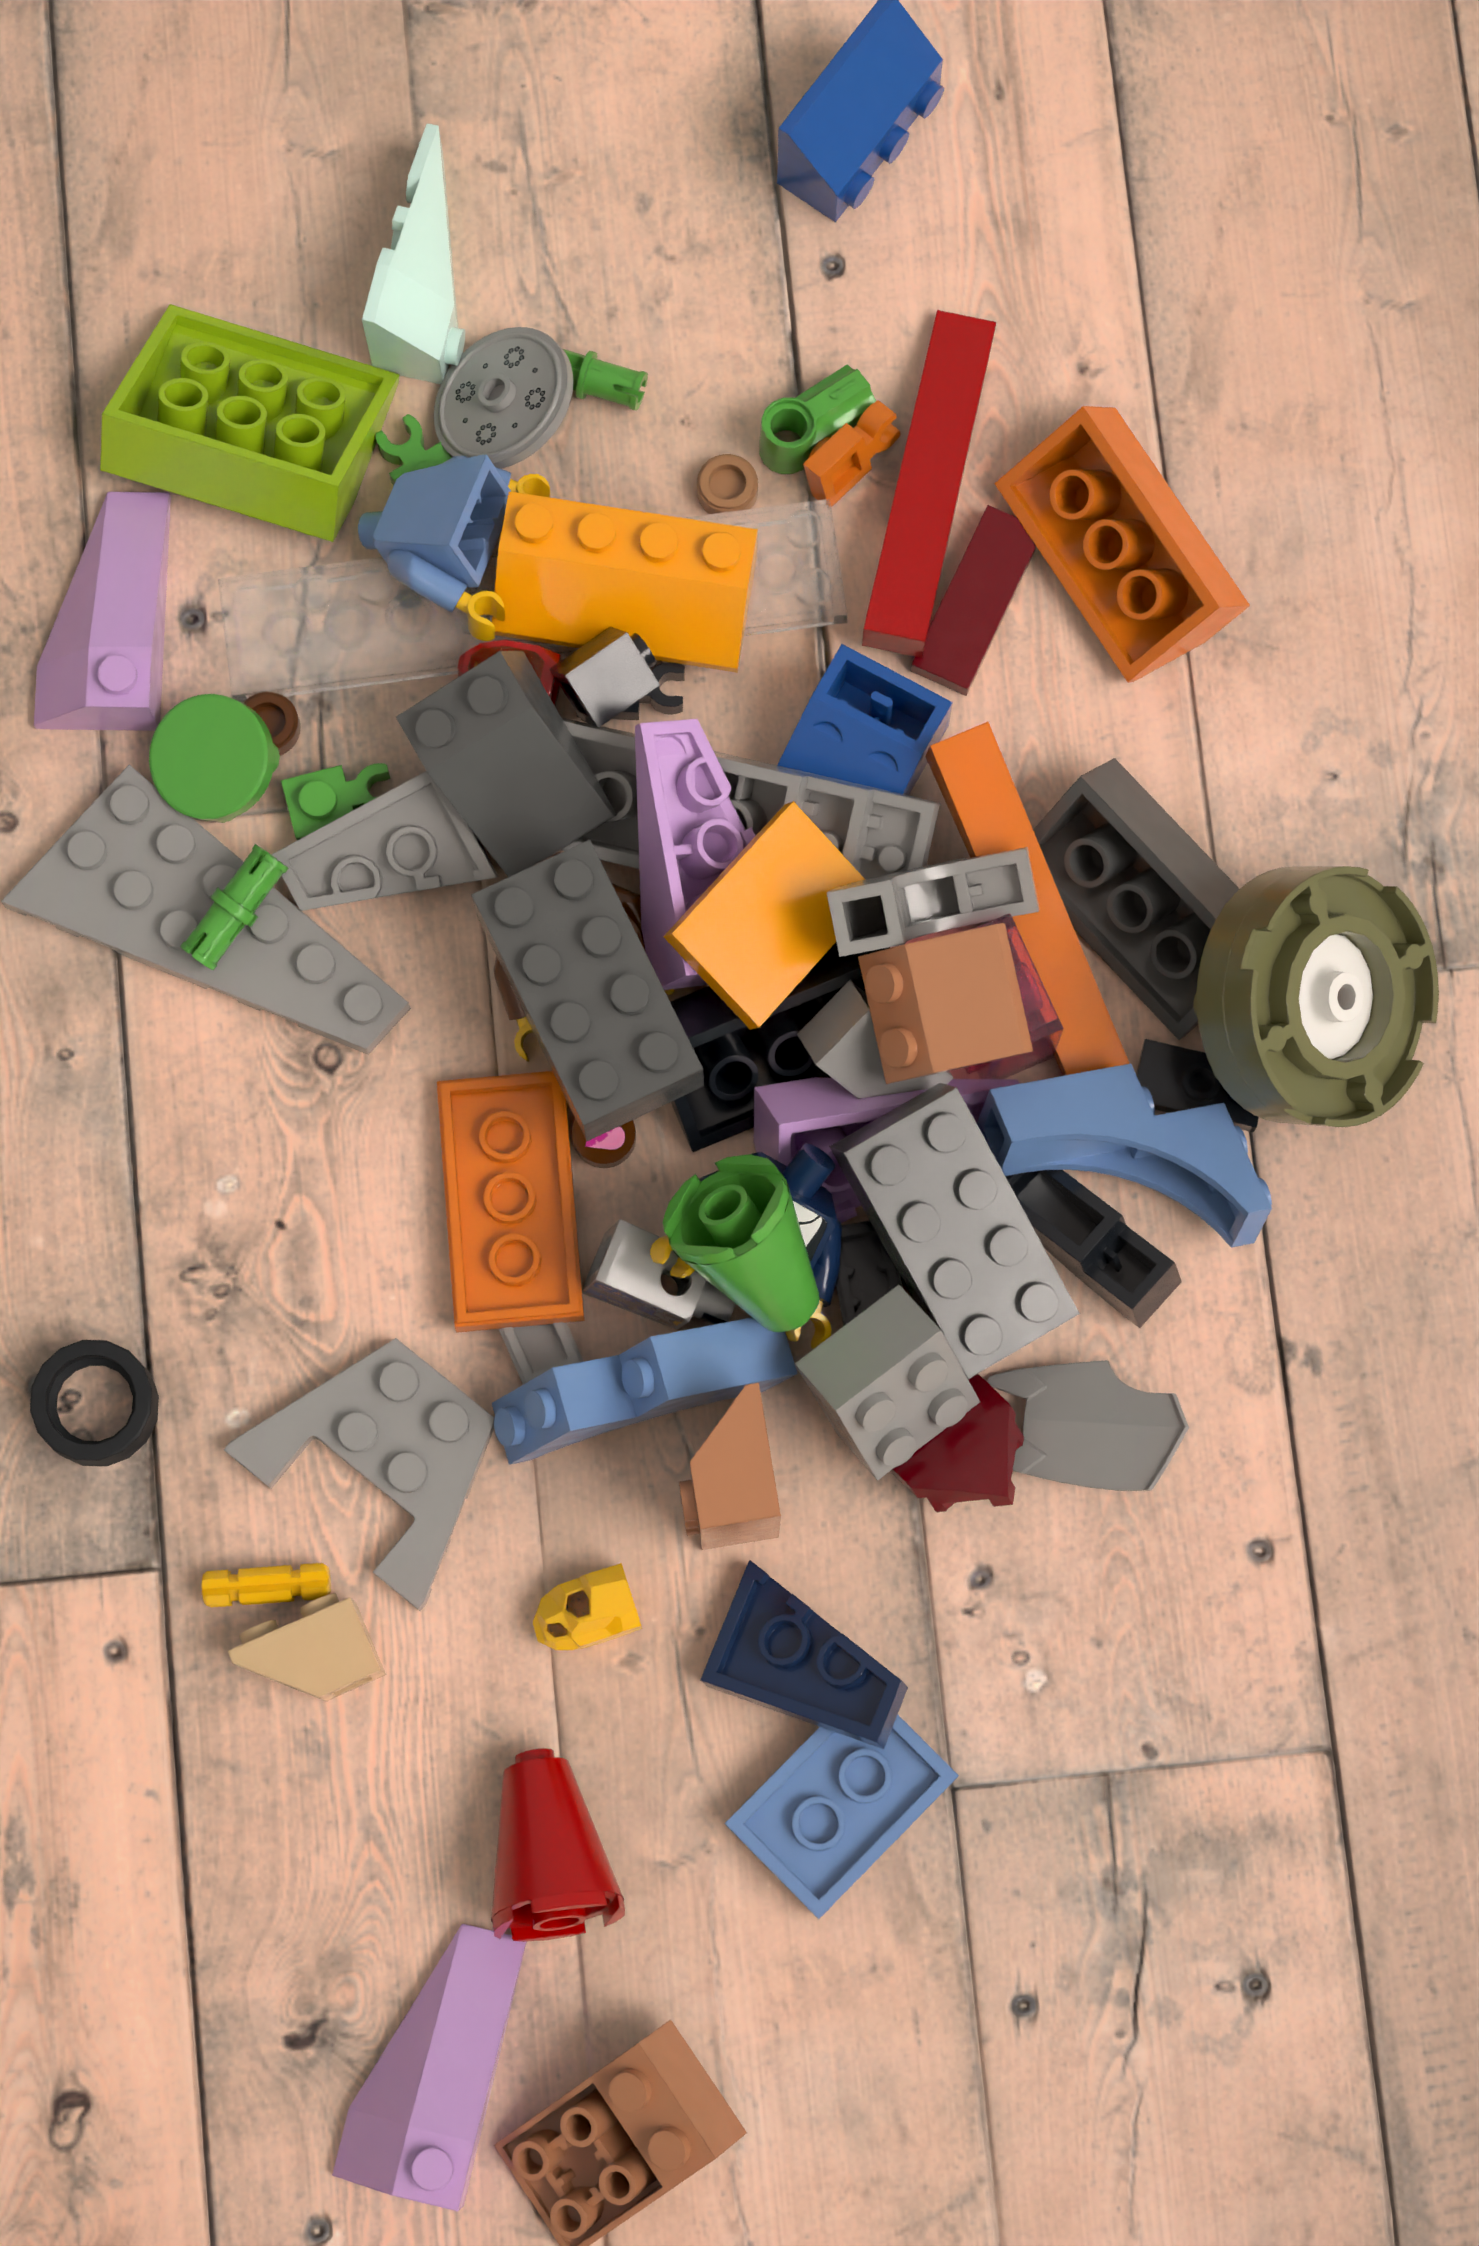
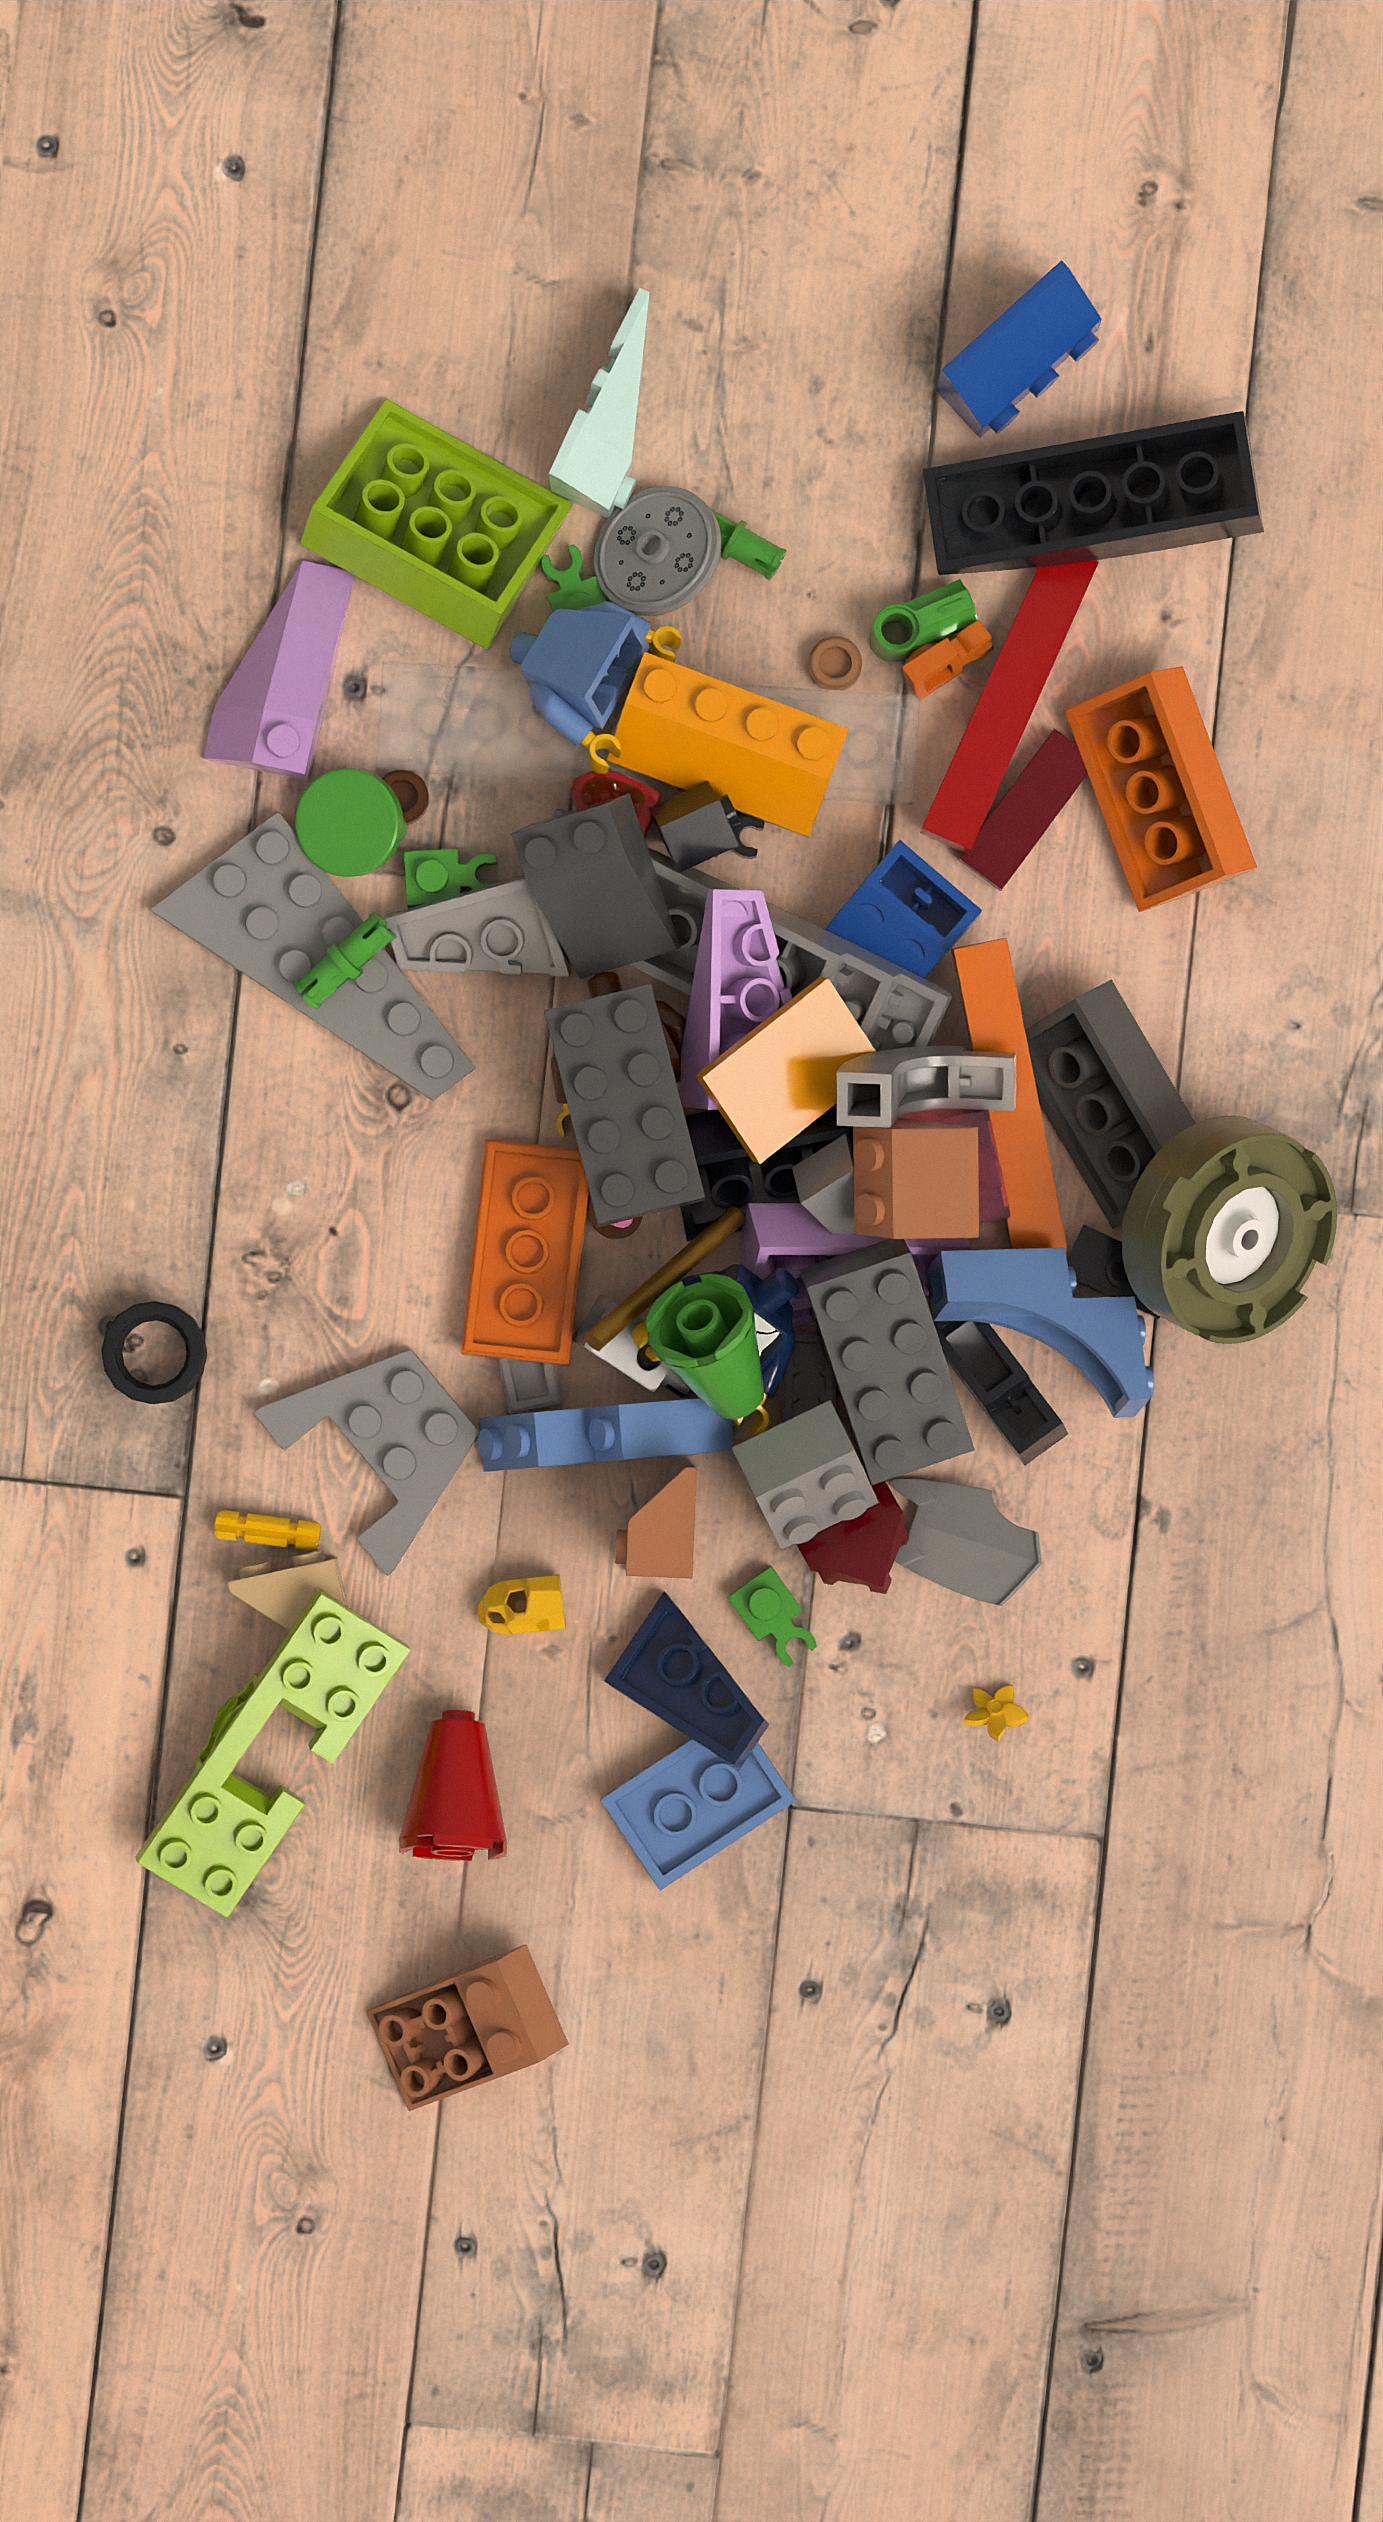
camera: 10 degrees right, 10 degrees up
(275, 1948) = (220, 1823): none -> lime plate
(428, 2094) = (322, 1960): lavender wedge -> none
(694, 1162) = (664, 1278): none -> pearl gold bar
(877, 1556) = (767, 1609): none -> bright green plate
(983, 246) = (1096, 498): none -> black slope
(1173, 1622) = (996, 1712): none -> yellow plant

